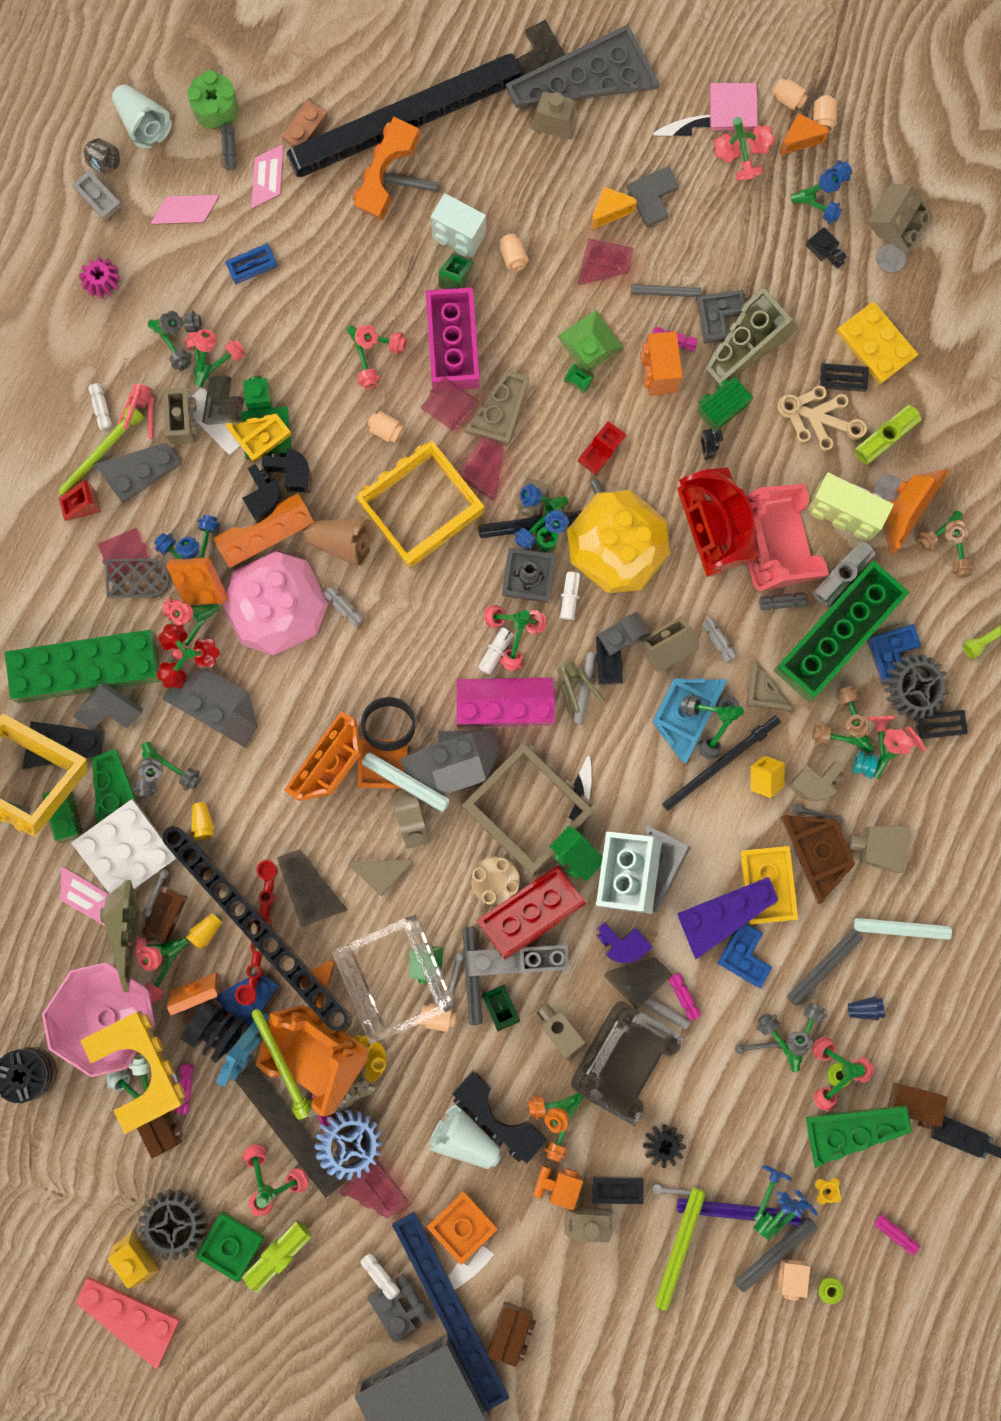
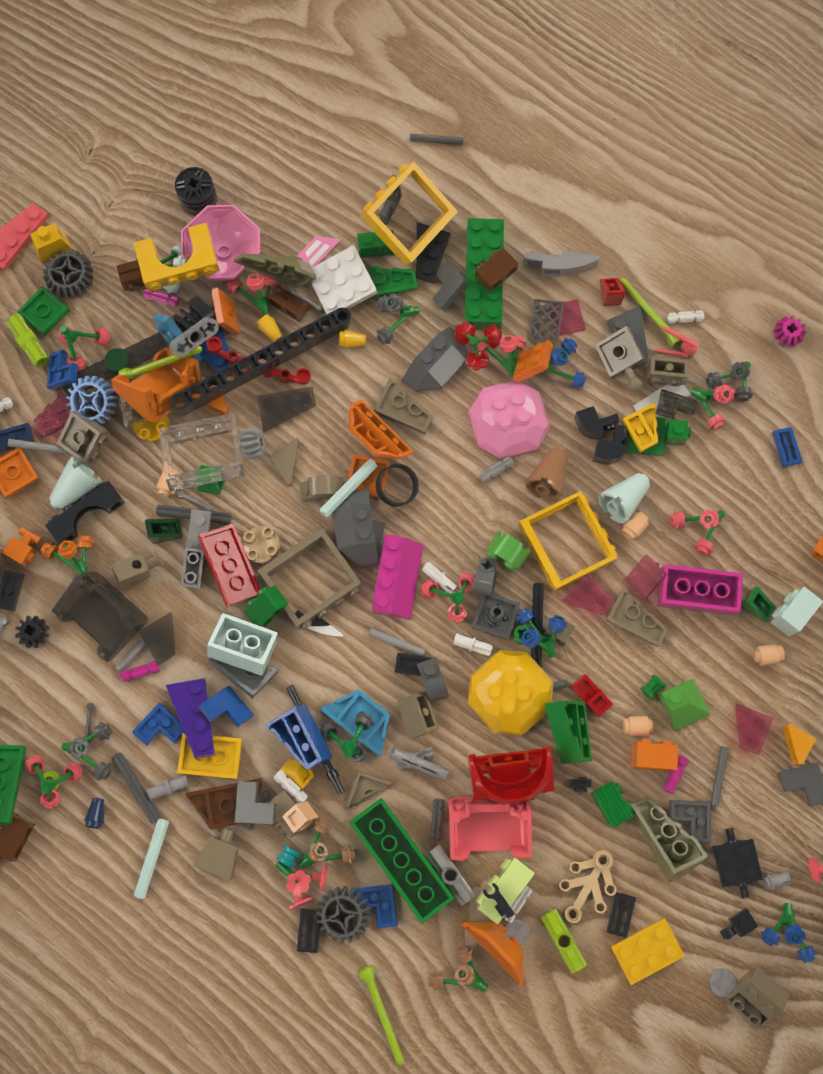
camera: 105 degrees right, 5 degrees down
(51, 562) = (567, 265): none -> light grey slope
(81, 645) = (496, 269): none -> reddish brown brick
(180, 480) = (630, 357): none -> plate
(238, 1011) = (202, 336): none -> light grey beam
(243, 543) = (571, 436): orange arch -> none
(284, 739) = (401, 408): none -> dark tan wing
(284, 1126) = (116, 359): none -> dark green sticker
(318, 1200) = (58, 372): none -> blue tile
(353, 443) = (624, 497): none -> light aqua cone
(368, 918) = (252, 443): none -> light grey gear
(401, 1143) = (82, 438): none -> dark tan plate
(421, 1203) = (36, 446): none -> light grey bar
(448, 572) = (507, 550): none -> bright green brick
(489, 593) = (485, 577): none -> dark grey piece
(569, 677) = (407, 631): olive plant -> none
(627, 949) = (185, 631): dark purple brick -> none
(628, 389) = (637, 726): none -> light nougat brick
(652, 462) = (570, 730): none -> green wedge
(701, 877) = (226, 702): none -> blue tile
(725, 776) = (301, 735): none -> blue wedge
(727, 625) = (411, 760): none -> light grey pin
(758, 258) = (737, 863): none -> black plate
(771, 217) = (781, 879): none -> light grey pin
(786, 778) = (290, 786): none -> white axle
(817, 927) = (167, 787): none -> light grey pin
(818, 758) = (300, 816): none -> light nougat brick
(825, 819) = (248, 808): none -> tile
(875, 500) = (502, 906): none -> black plate

